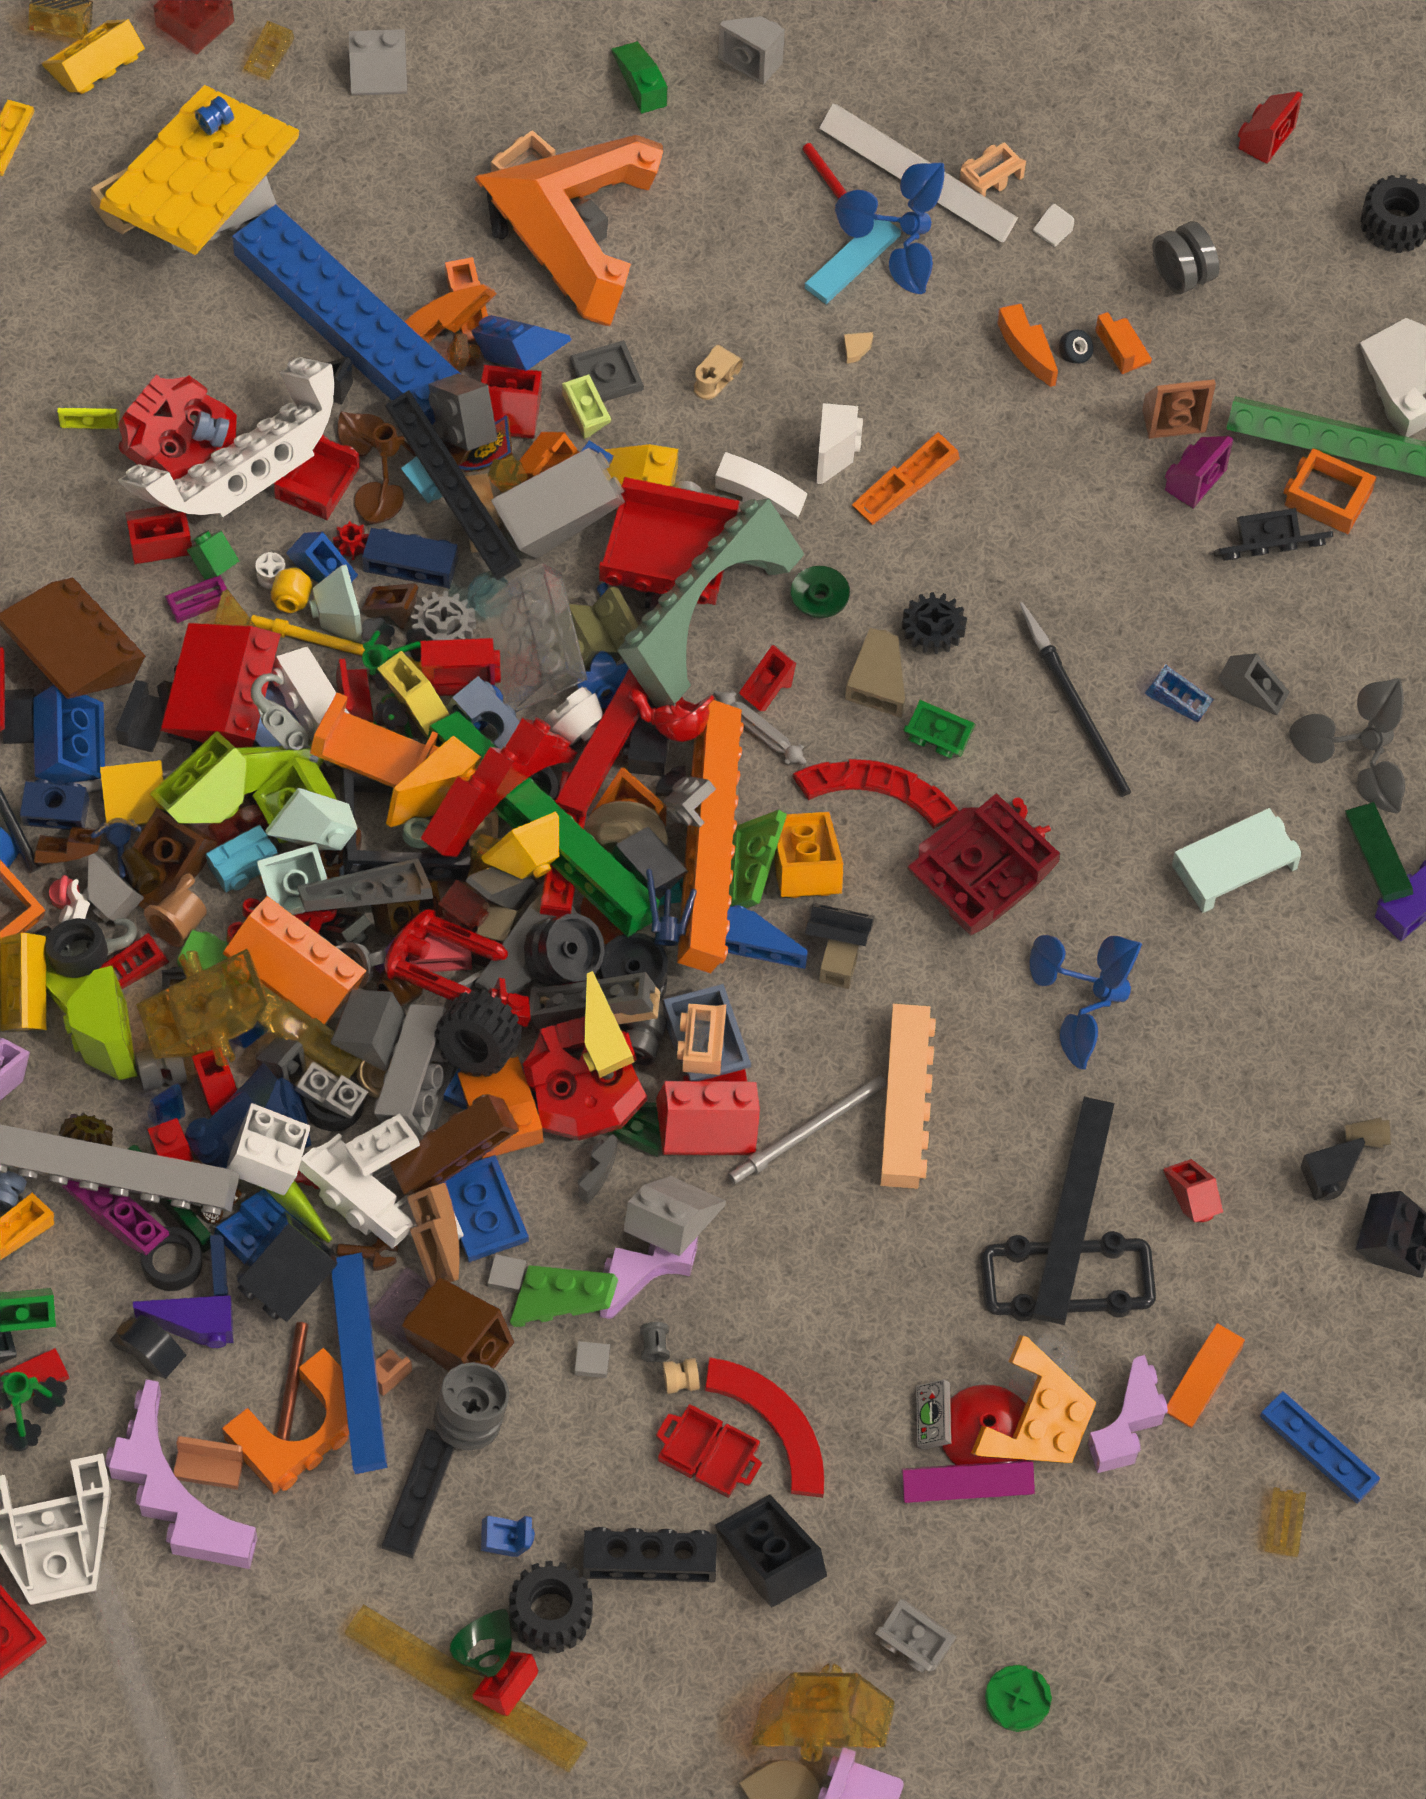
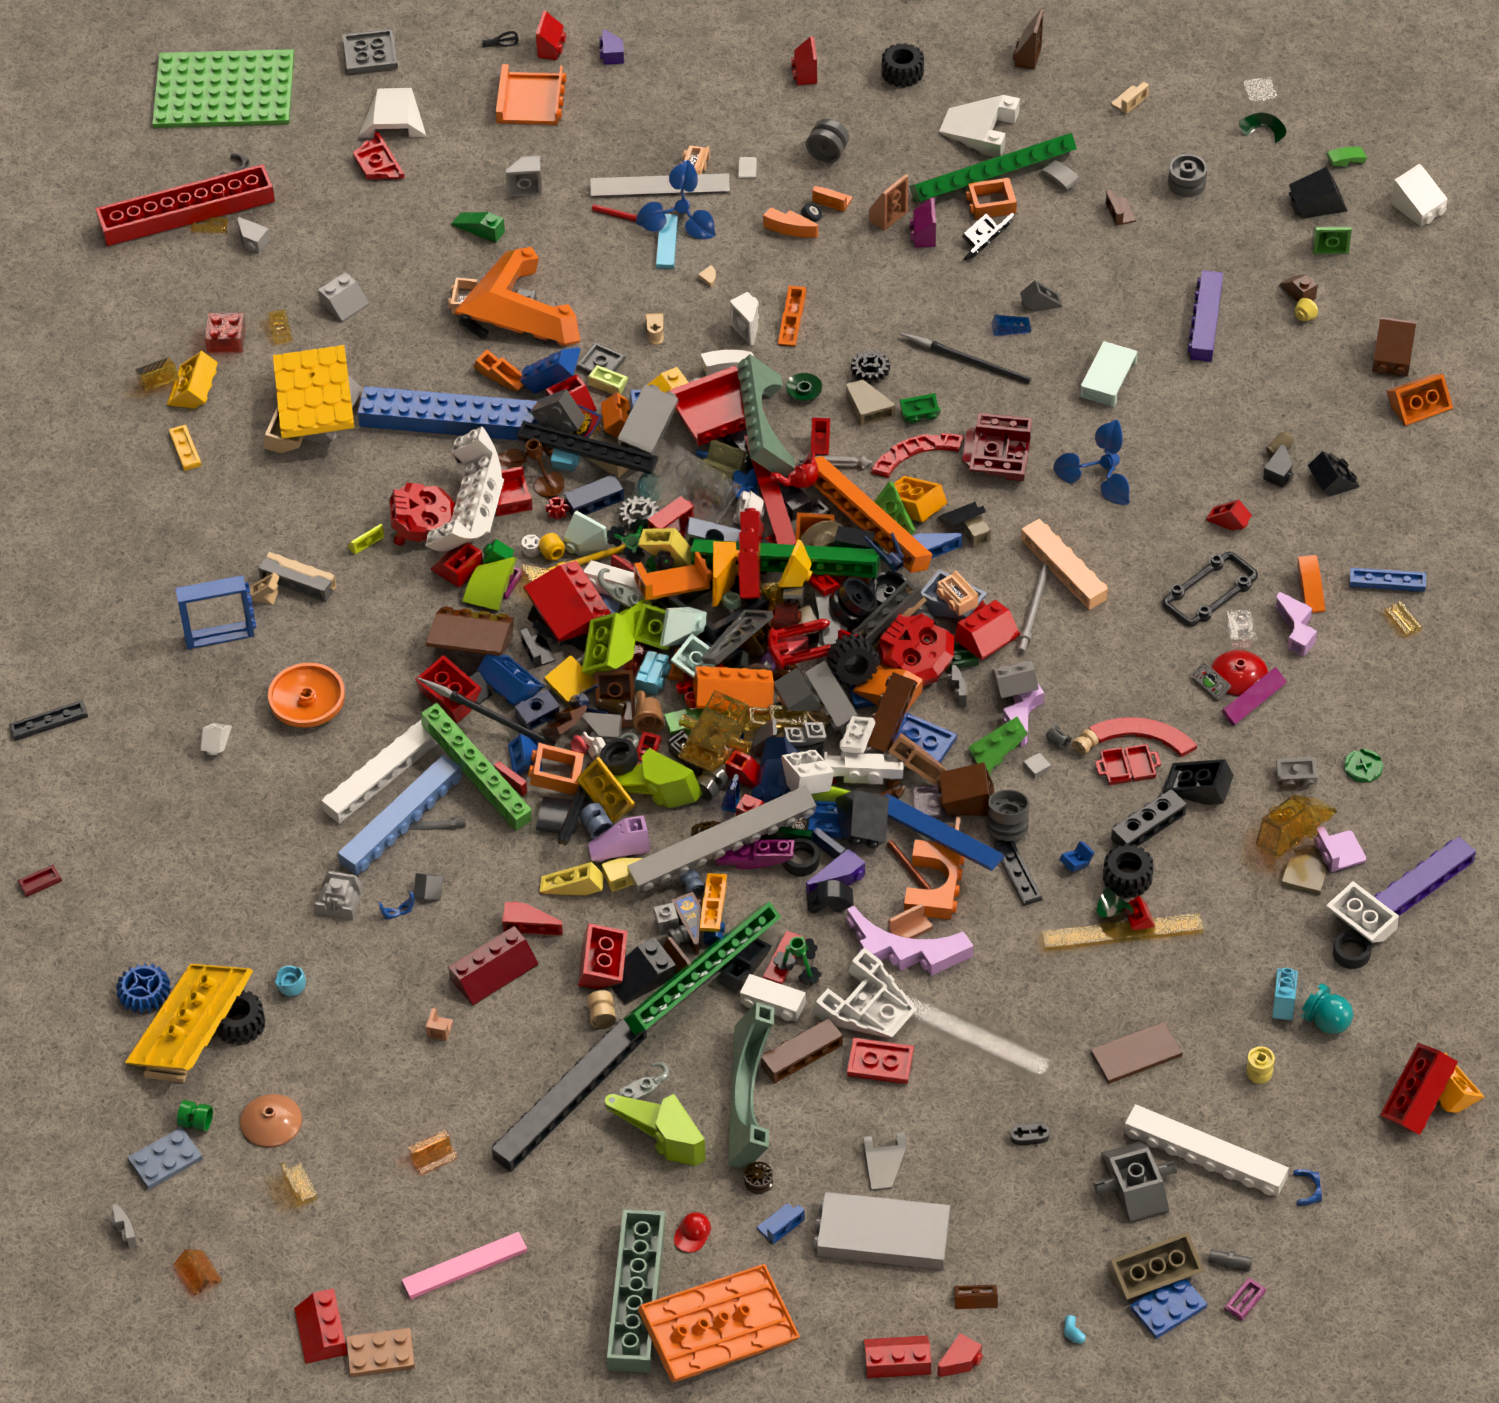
camera: 35 degrees left, 10 degrees down
(167, 587) = (489, 583): none -> lime slope
(210, 429) = (443, 498): sand blue wheel -> none
(214, 115) = (299, 361): blue wheel -> none
(318, 556) = (549, 522): blue slope -> none
(392, 601) = (610, 516): reddish brown slope -> none
(449, 311) = (502, 376): orange slope -> none
(462, 354) = (522, 393): clear orange tile -> none
(506, 474) = (611, 428): clear yellow slope -> none
(507, 1274) = (961, 757): light grey tile -> none
(603, 1038) = (914, 616): light yellow slope -> none
(686, 797) = (846, 502): light grey bracket -> none
(1052, 1416) = (1265, 641): light orange wing -> none
(1073, 1211) = (1186, 559): black tile -> none
(1379, 852) = (1168, 328): dark green tile -> none
(1383, 706) = (1118, 259): dark grey plant -> none

